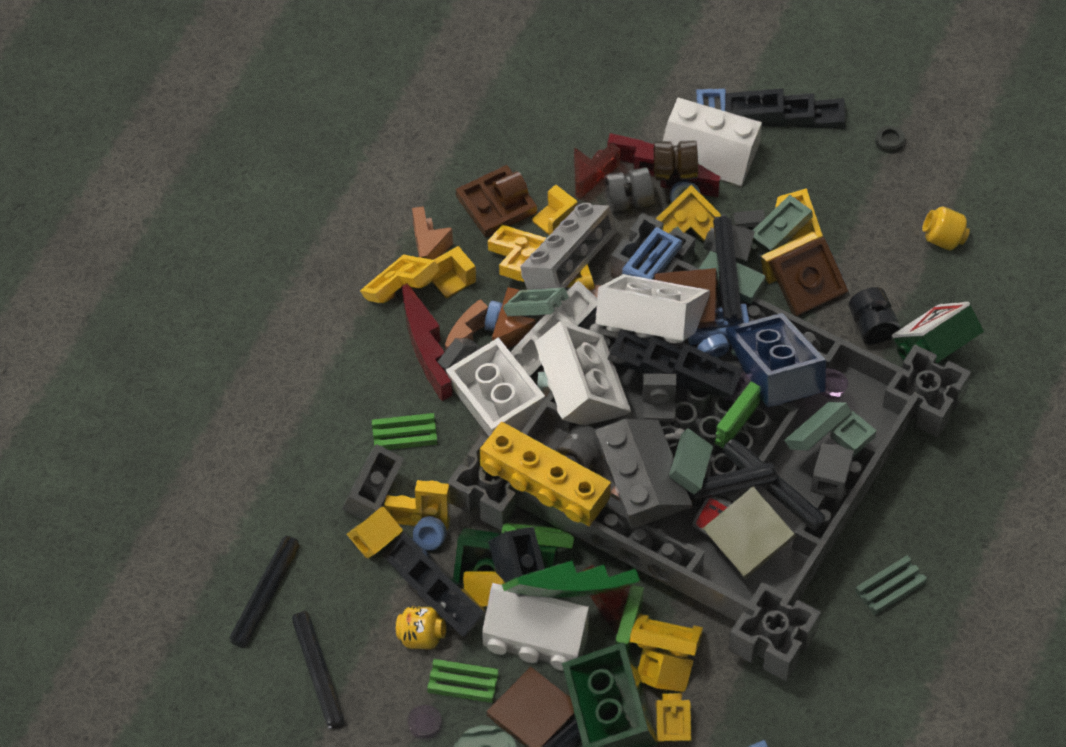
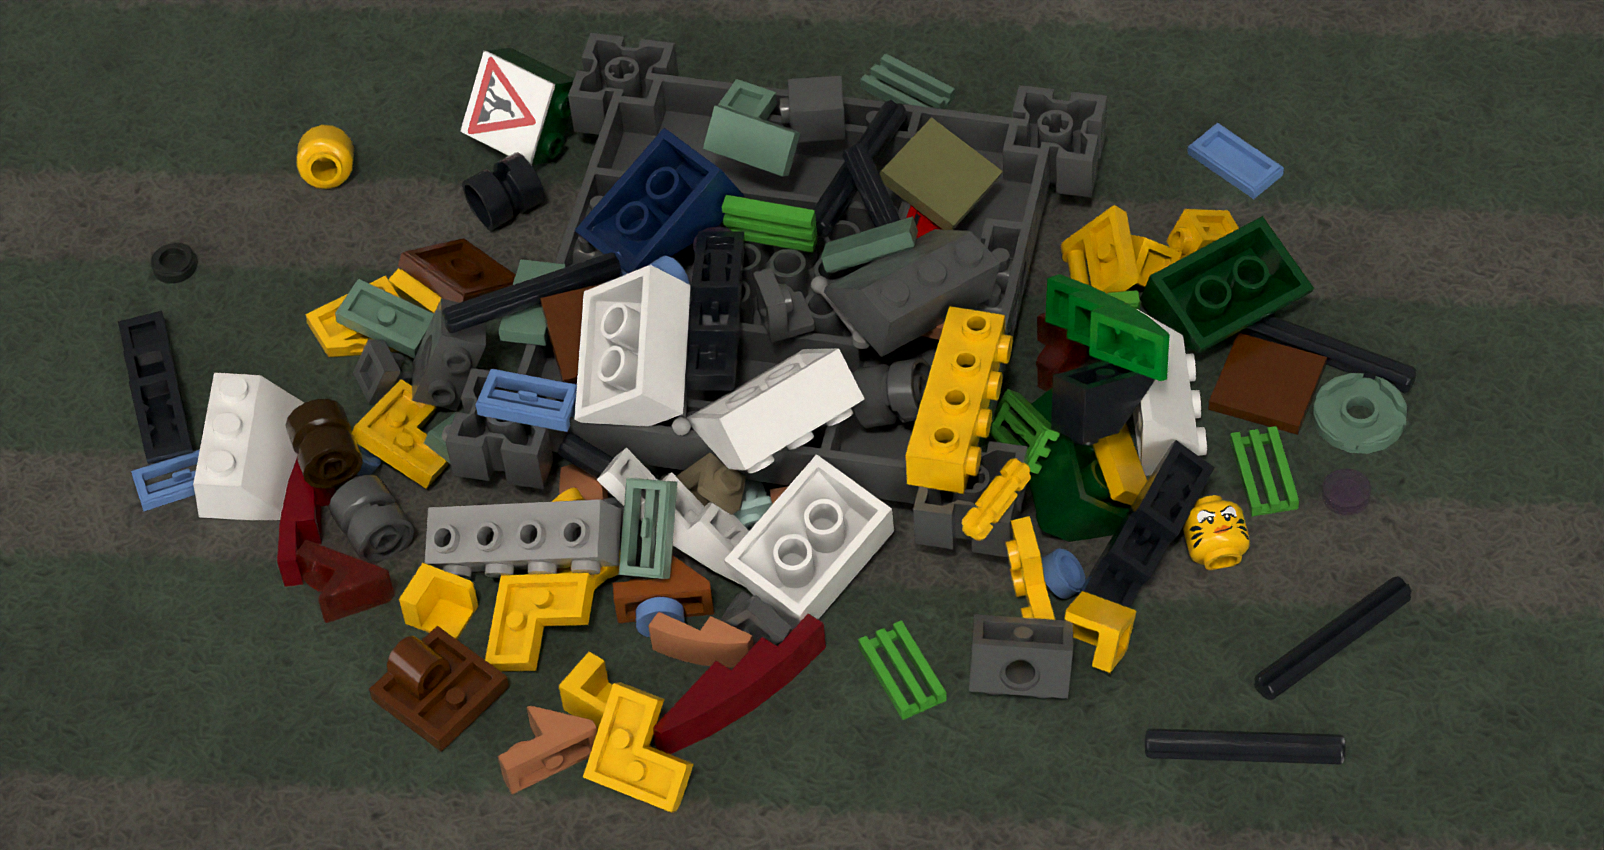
camera: 105 degrees left, 5 degrees down
(462, 475) = (996, 499): none -> yellow axle

